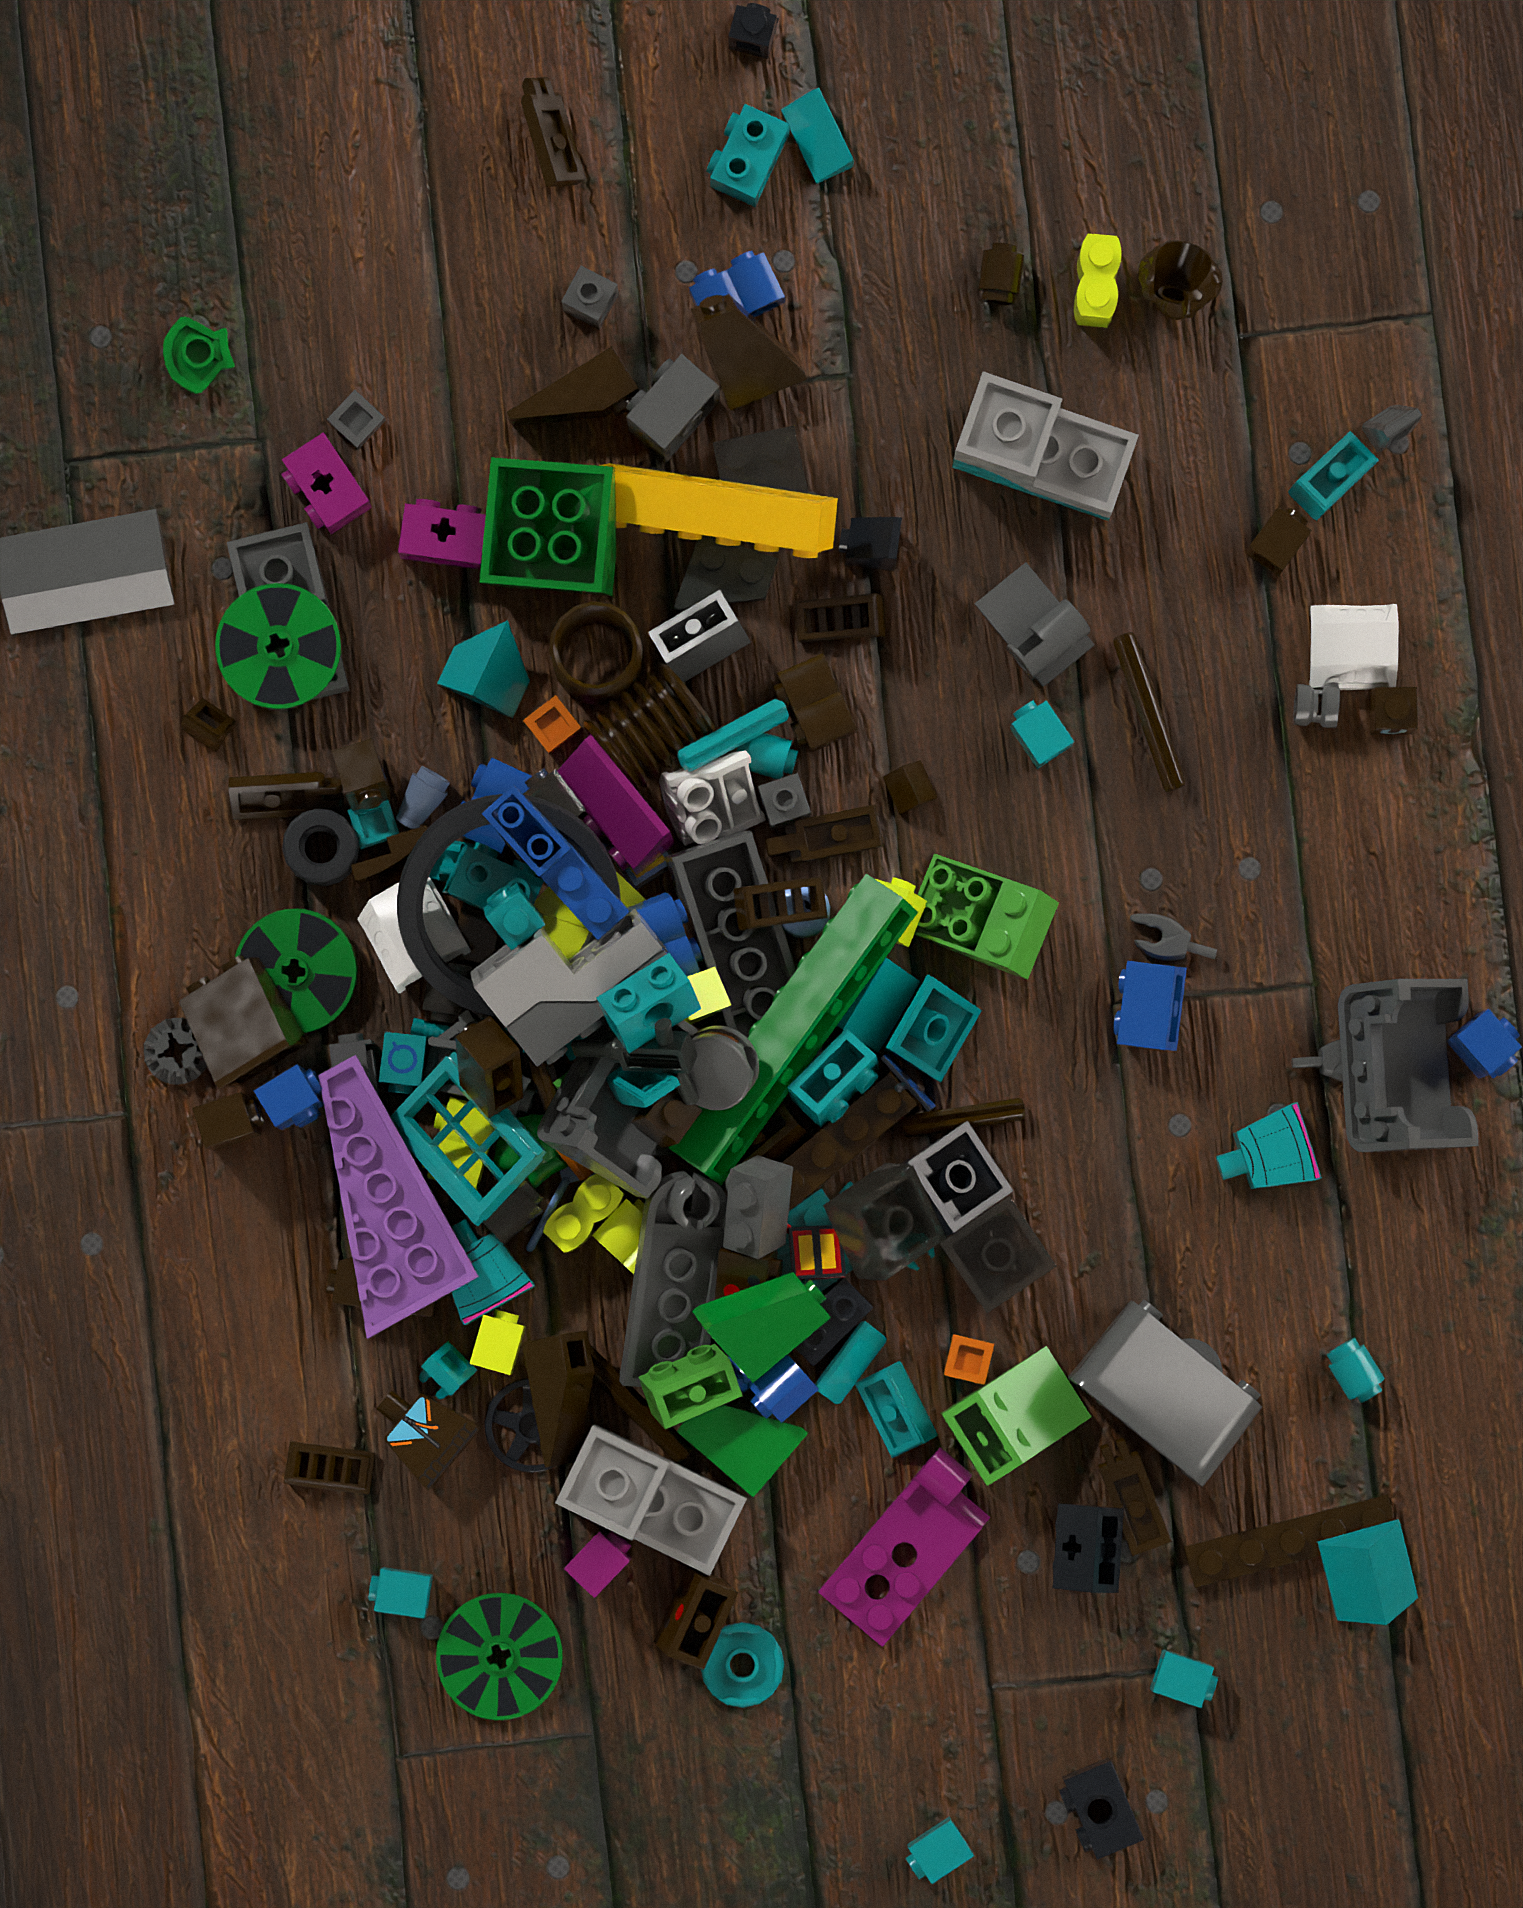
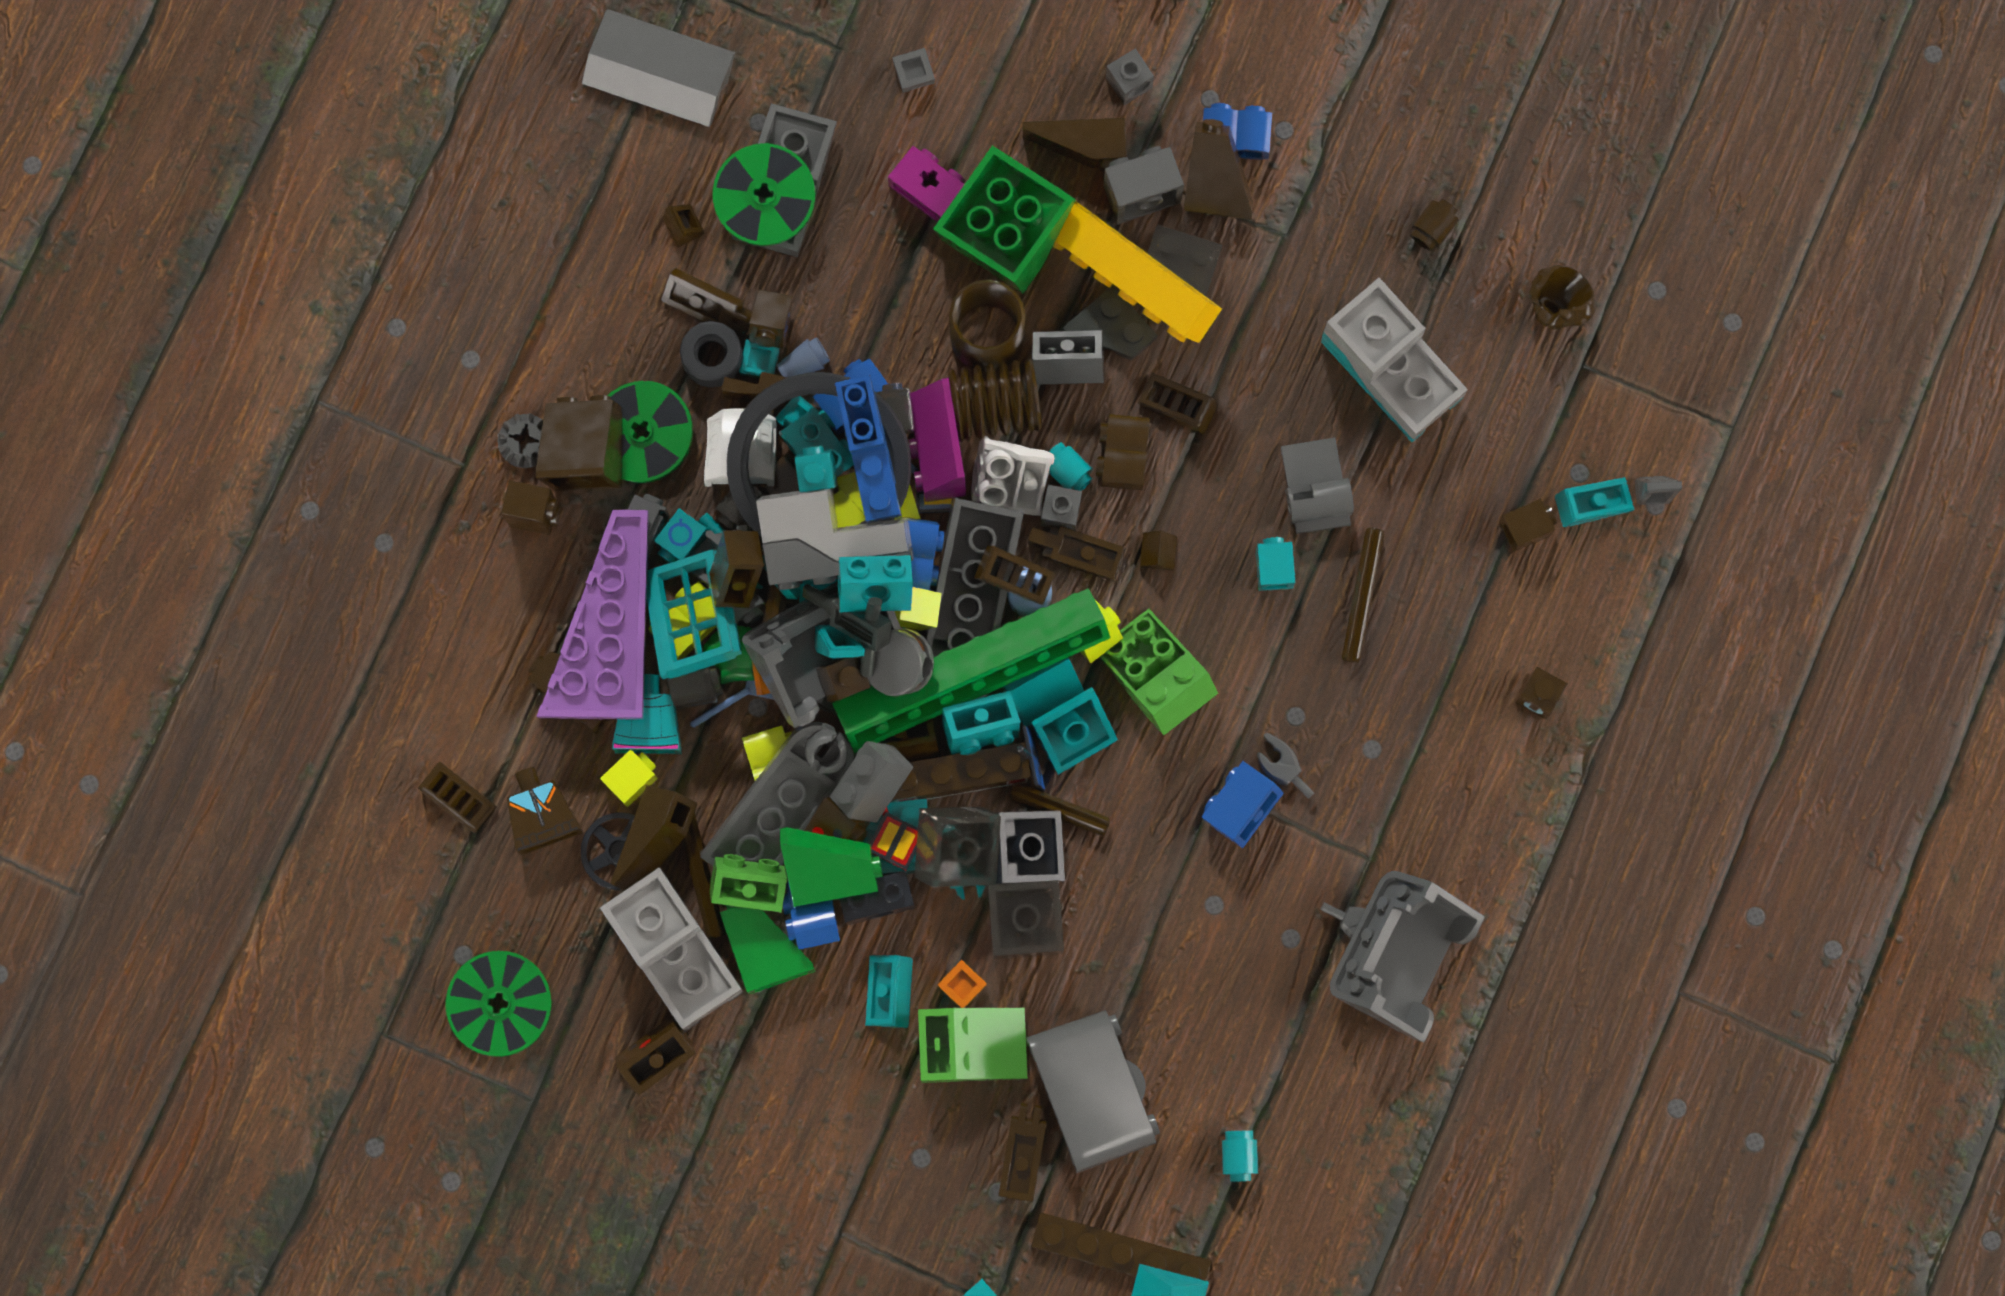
camera: 30 degrees right, 5 degrees down
(292, 1097) = (584, 516): blue brick -> none
(320, 460) = (868, 83): magenta brick -> none
(401, 1592) = (455, 916): teal brick -> none
(448, 1369) = (583, 775): teal tile -> none
(488, 670) = (904, 298): teal slope -> none
(552, 724) = (927, 361): orange plate -> none
(575, 1221) = (734, 721): neon yellow brick -> none
(599, 1561) = (609, 974): magenta brick -> none
(733, 735) = (1051, 438): teal axle -> none
(748, 155) = (1301, 40): teal brick -> none
(764, 1678) = (684, 1127): teal tile -> none
(818, 136) = (1359, 55): teal slope -> none
(850, 1362) = (875, 937): teal slope -> none
(871, 542) = (1231, 360): black slope -> none
(931, 1518) = (869, 1088): magenta hinge -> none
(1088, 1548) = (969, 1170): black brick -> none
(1097, 288) = (1499, 269): neon yellow brick -> none
(1272, 1151) = (1270, 961): teal torso -> none
(1306, 706) = (1481, 652): dark grey wheel -> none
(1354, 646) = (1538, 631): white slope -> none
(1486, 1044) = (1471, 971): blue brick -> none

